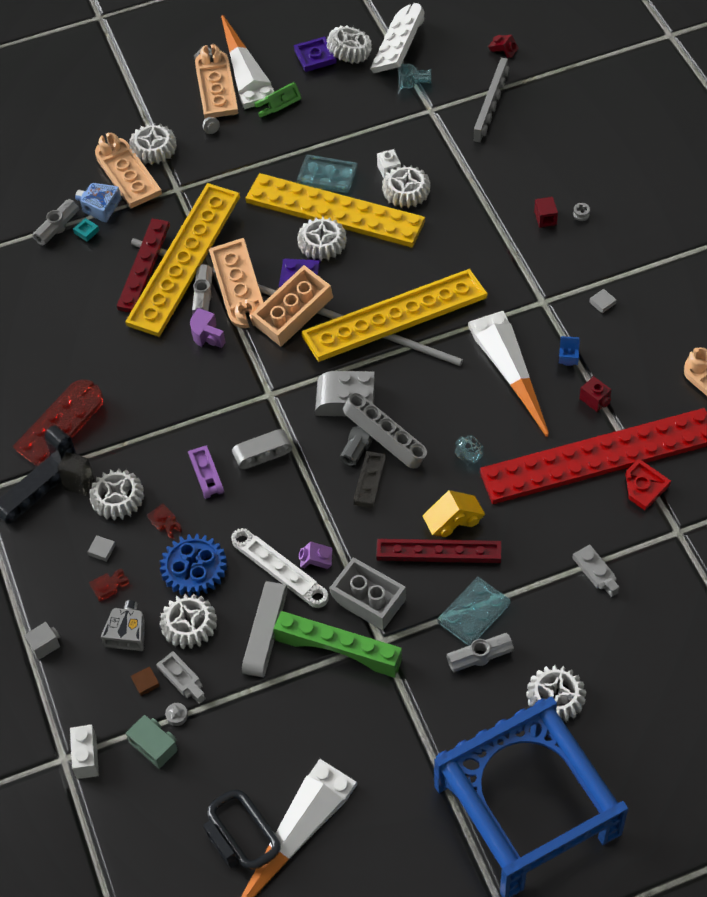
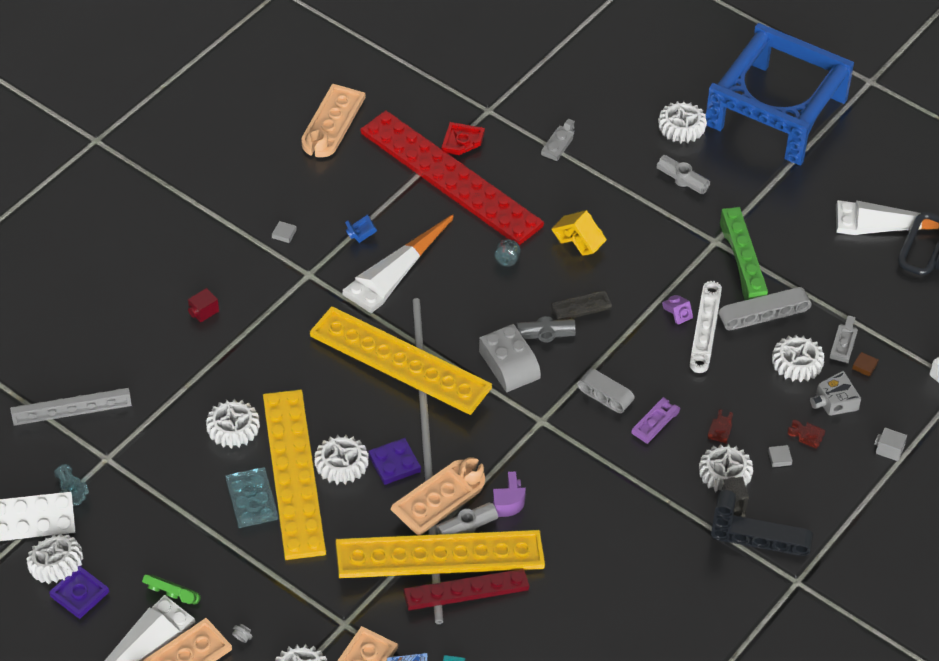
camera: 125 degrees left, 5 degrees down
(68, 412) = (687, 551): clear red plate -> none
(152, 741) = (908, 329): sand green brick -> none
(176, 714) = (874, 331): light grey tile -> none
(177, 560) = (748, 381): blue gear -> none
(292, 305) = (443, 432): light nougat brick -> none
(368, 593) = (689, 250): light grey brick -> none
(384, 430) = (535, 304): light grey beam -> none
(386, 161) = (211, 450): white brick -> none
(438, 550) = (615, 235): dark red plate -> none
(473, 611) = (648, 196): clear light blue plate -> none
(577, 211) = (181, 288): light grey bush -> none
(595, 394) = (394, 196): dark red brick -> none

